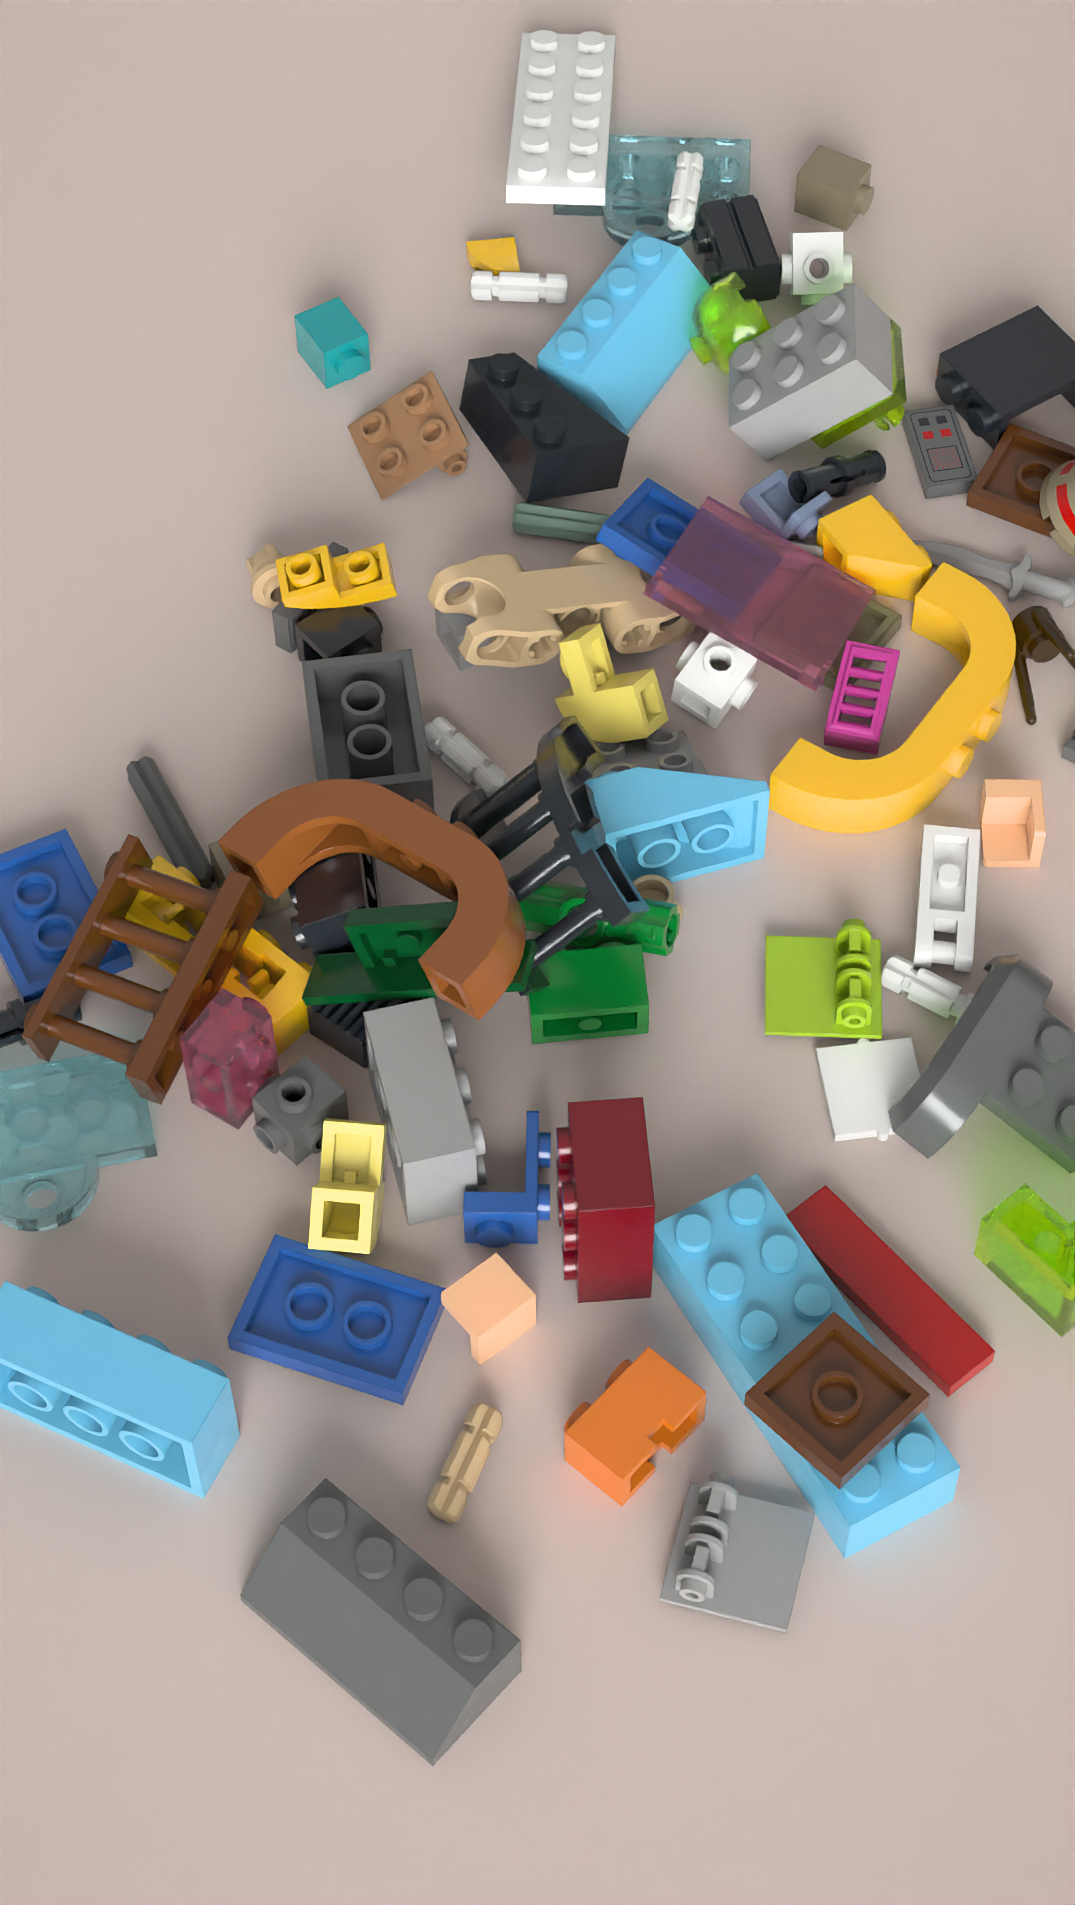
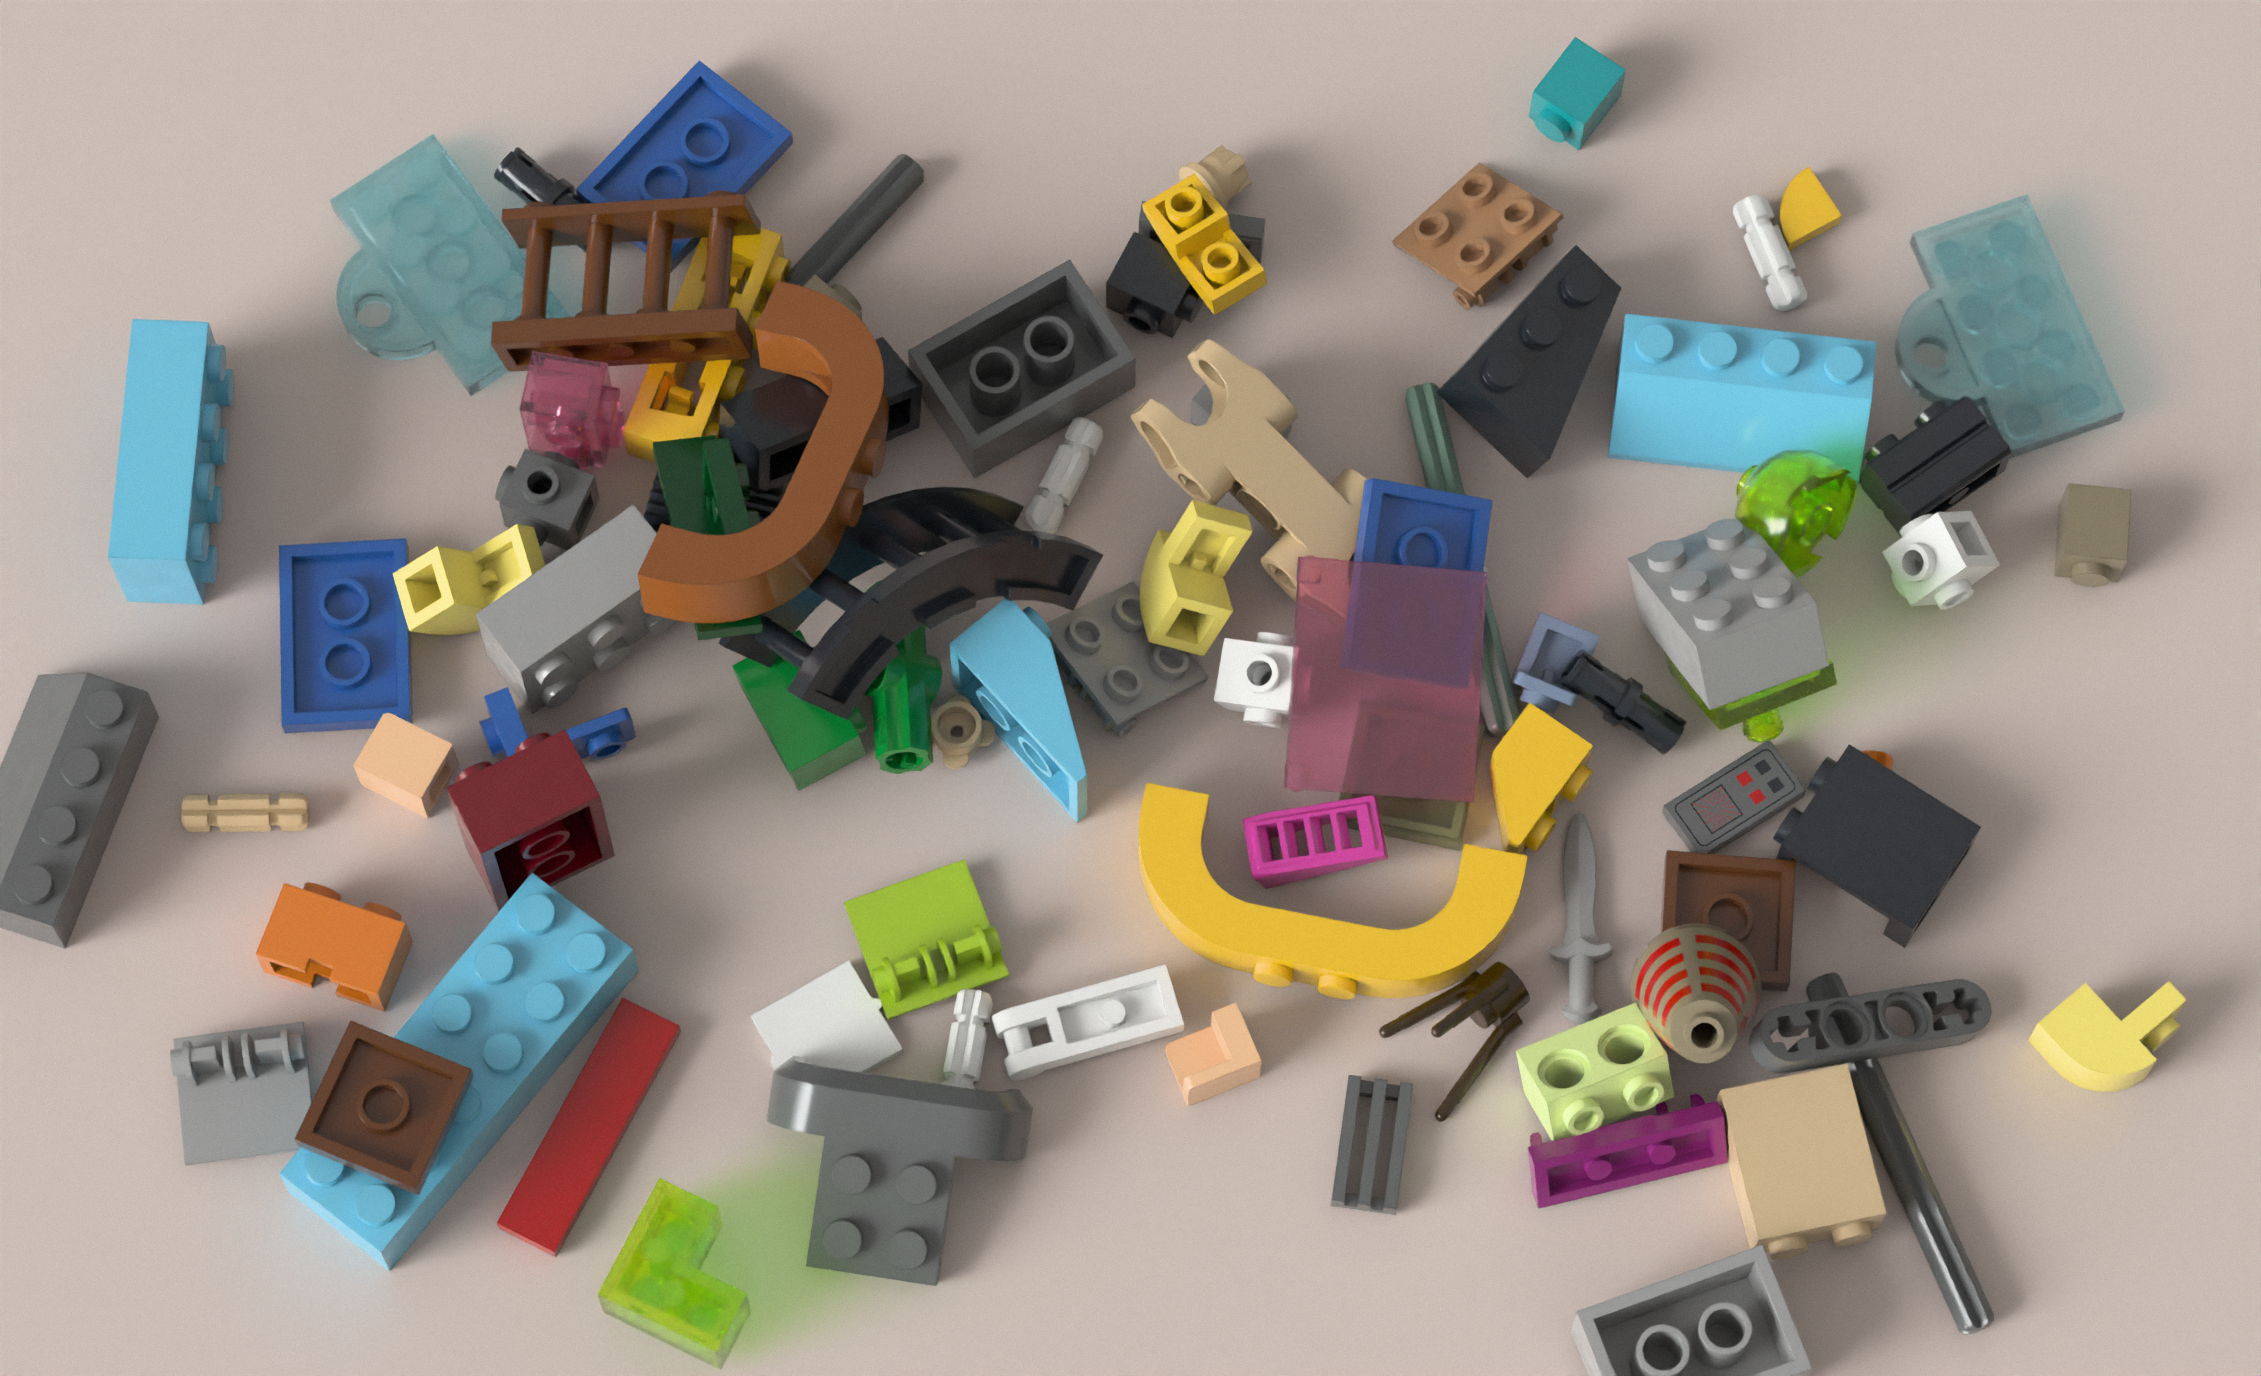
camera: 65 degrees right, 15 degrees up
(561, 119) = (2047, 187): white plate -> none
(685, 191) = (1984, 370): white axle -> none

